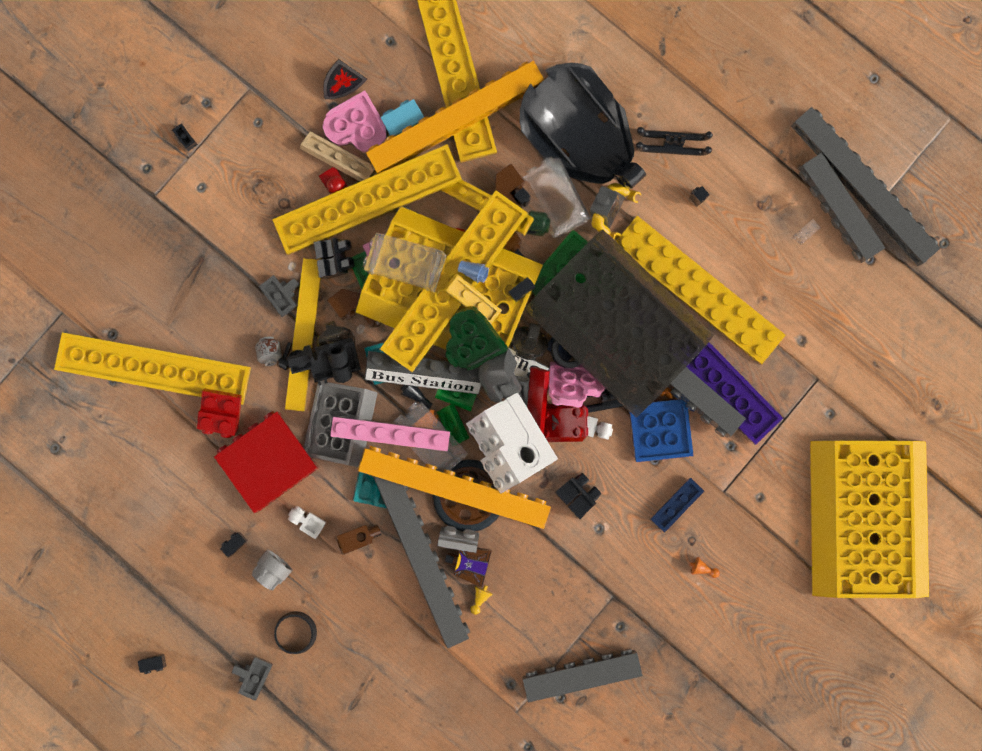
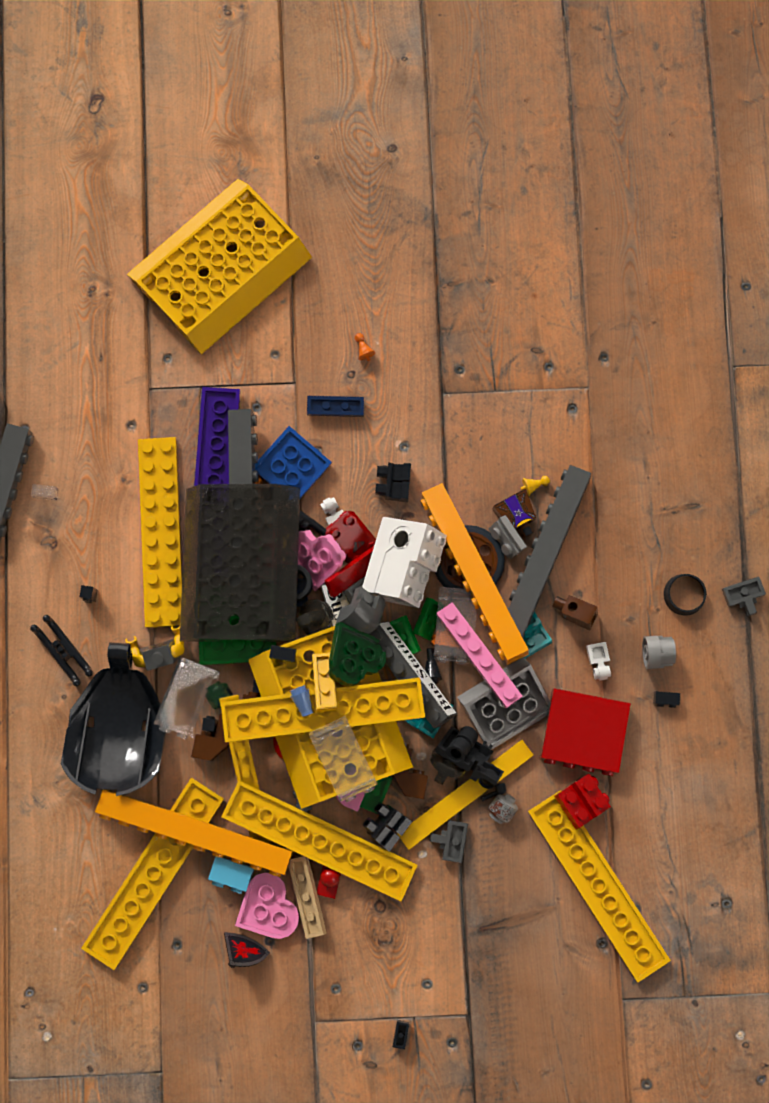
camera: 135 degrees left, 5 degrees down
(582, 676) = (519, 363): dark grey brick -> none

